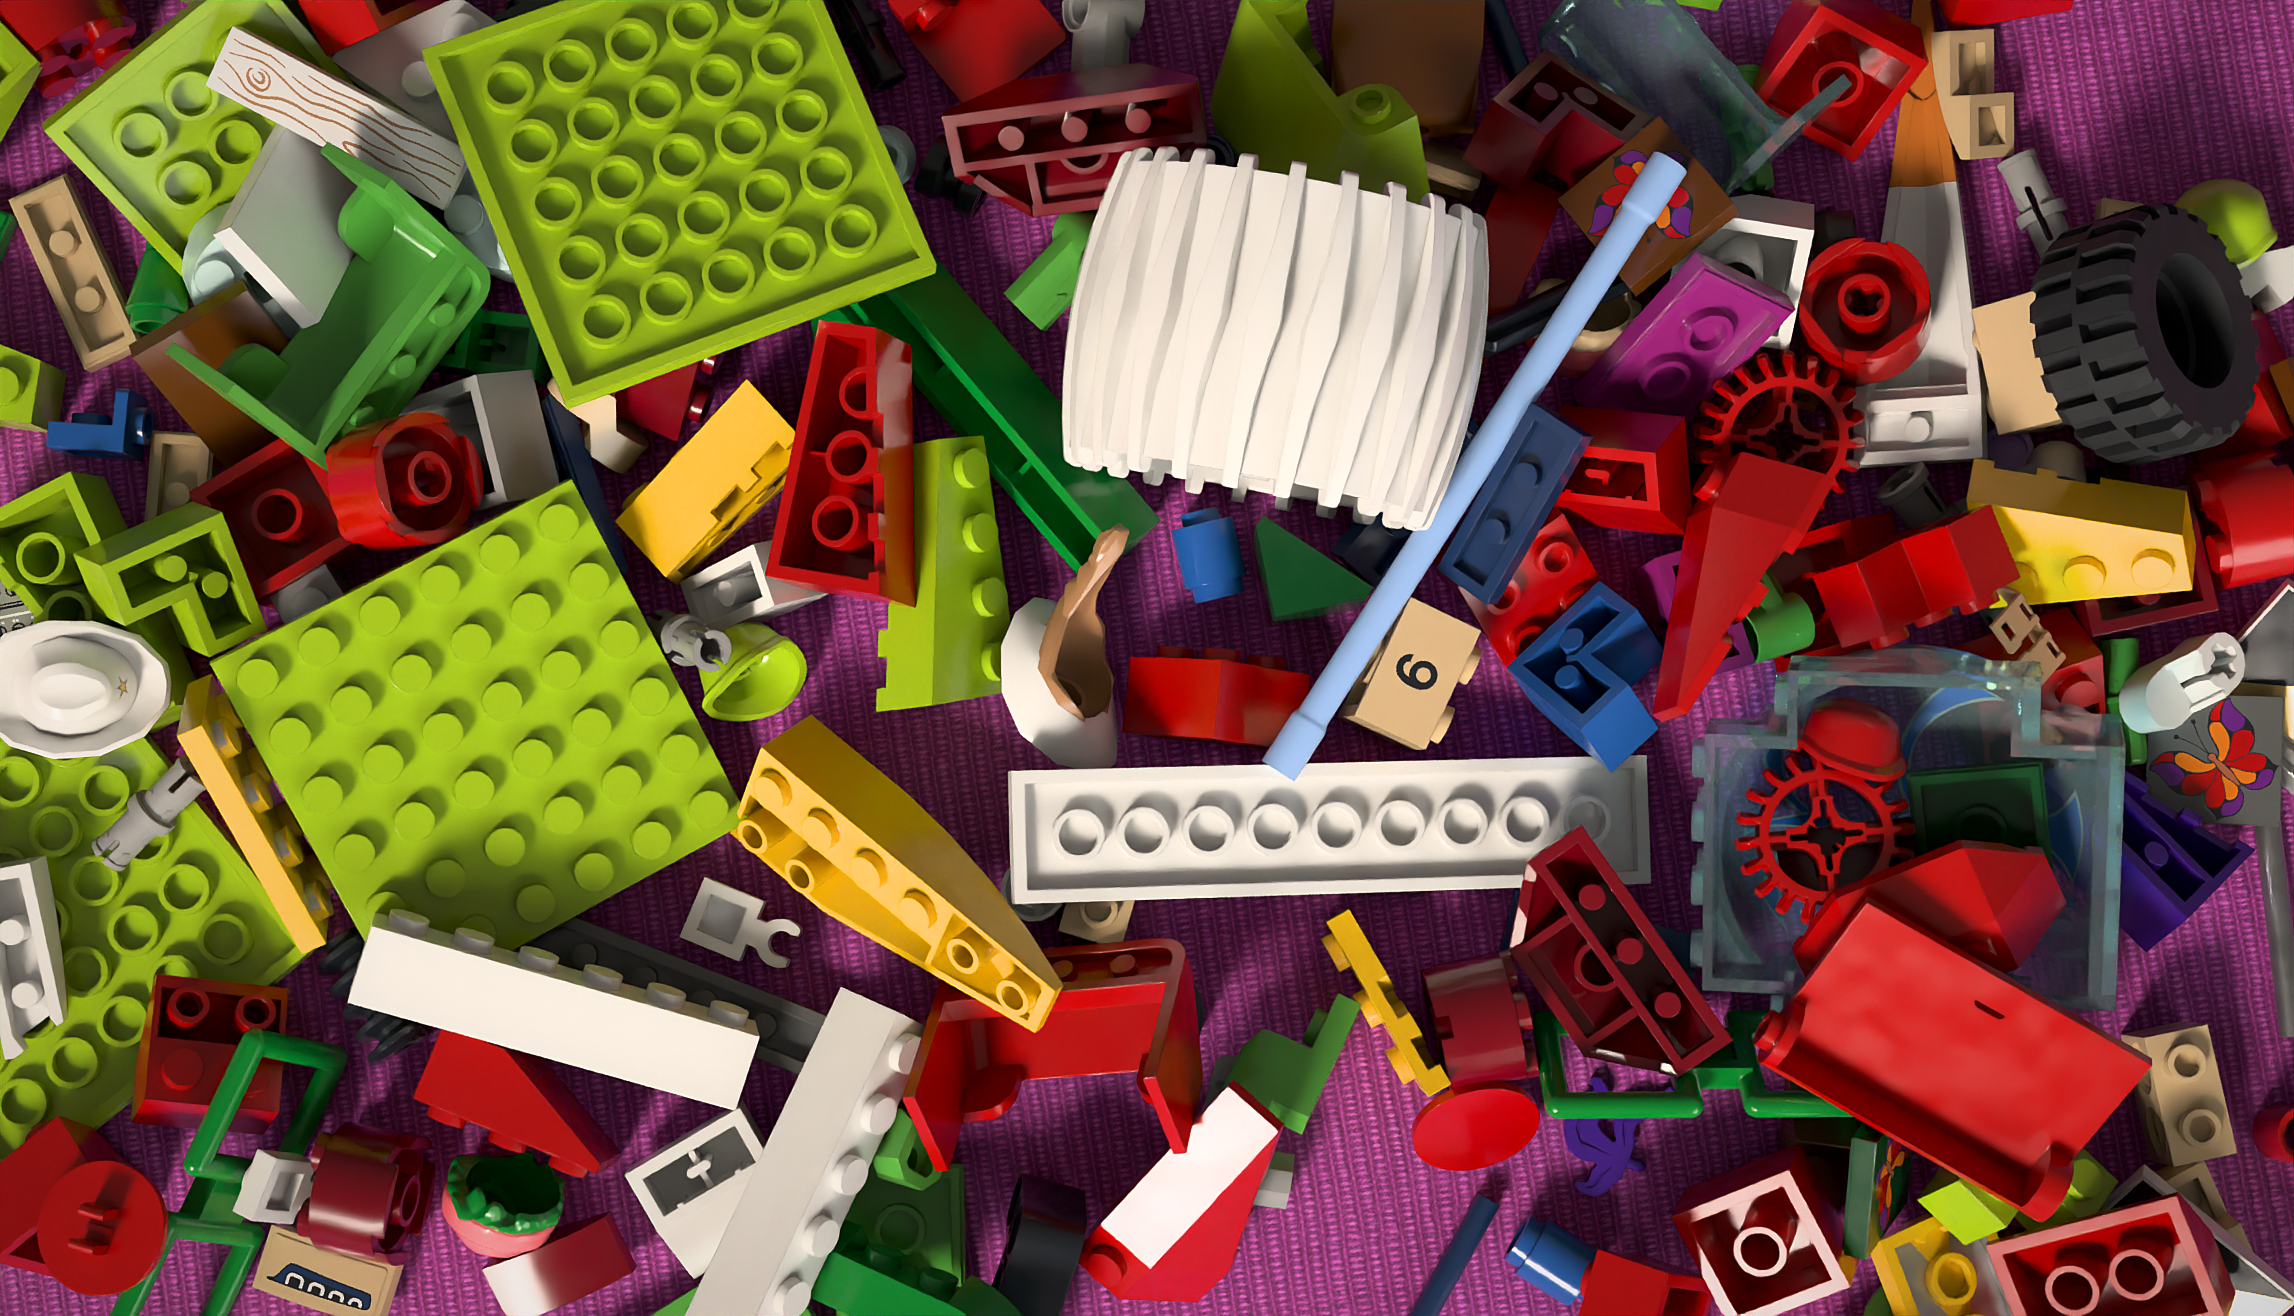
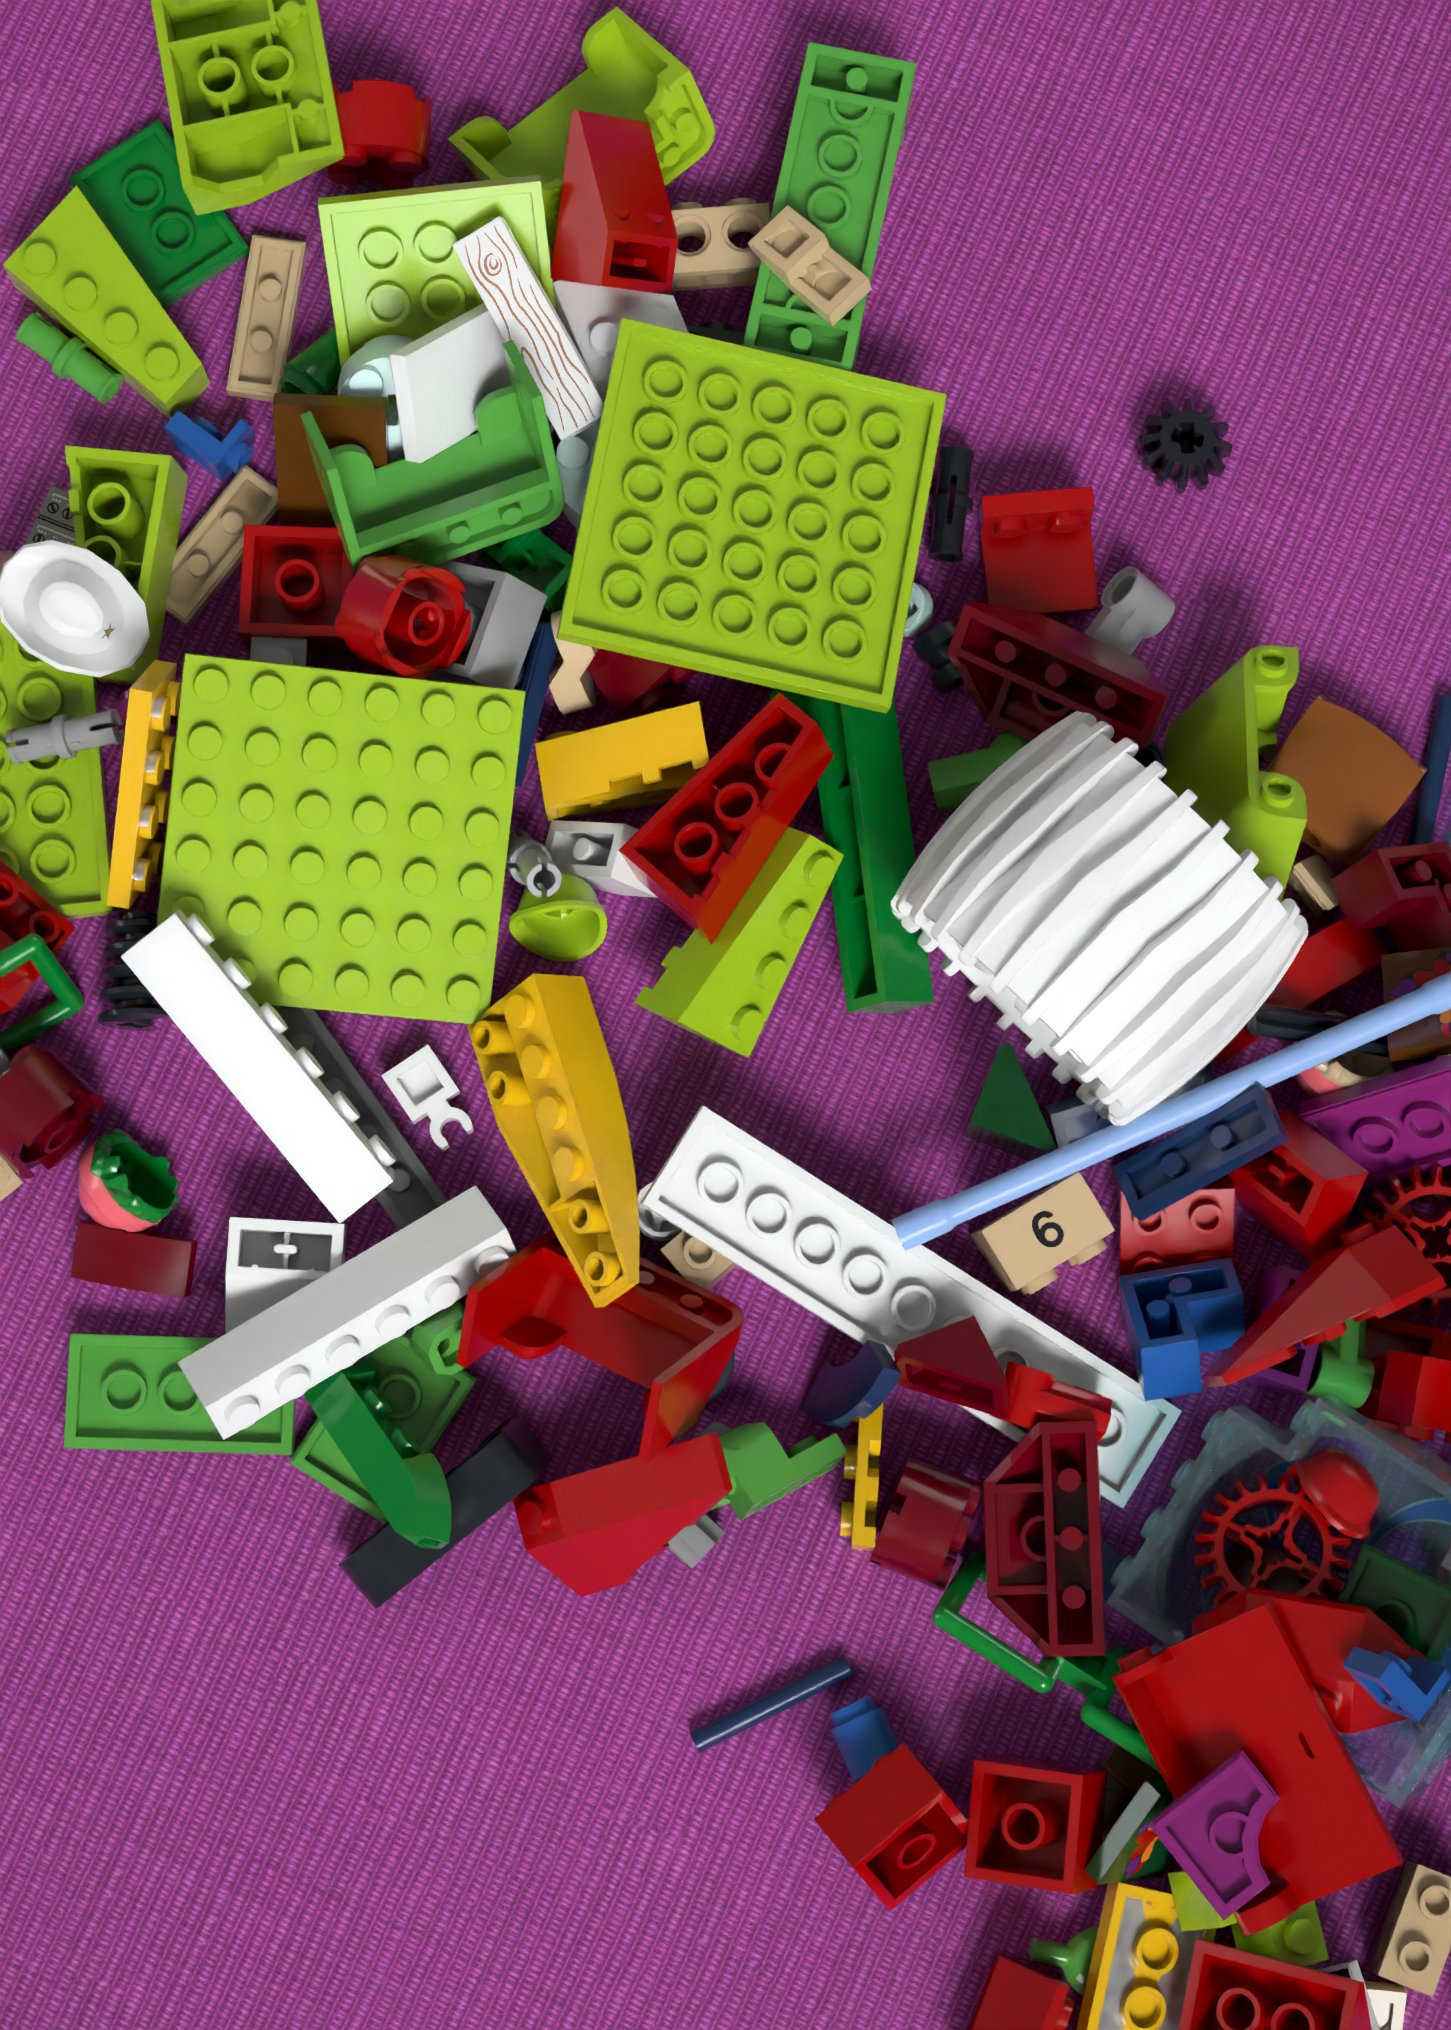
camera: 35 degrees right, 5 degrees down
(176, 564) = (207, 574): lime brick -> none
(516, 1100) = (186, 1098): red slope -> none
(1059, 670) = (786, 1058): hat -> none
(1209, 555) = (953, 1052): blue brick -> none
(1211, 696) = (884, 1153): red brick -> none
(1329, 944) = (852, 1388): none -> dark blue tile
(1415, 861) = (955, 1367): none -> dark red slope
(1475, 1126) = (873, 1599): red piece -> none
(1505, 837) = (1039, 1398): none -> red piece
(1611, 1157) = (950, 1674): dark purple piece -> none
(1954, 1145) = (1217, 1831): none -> magenta tile
(2045, 893) = (1398, 1685): none -> blue bracket

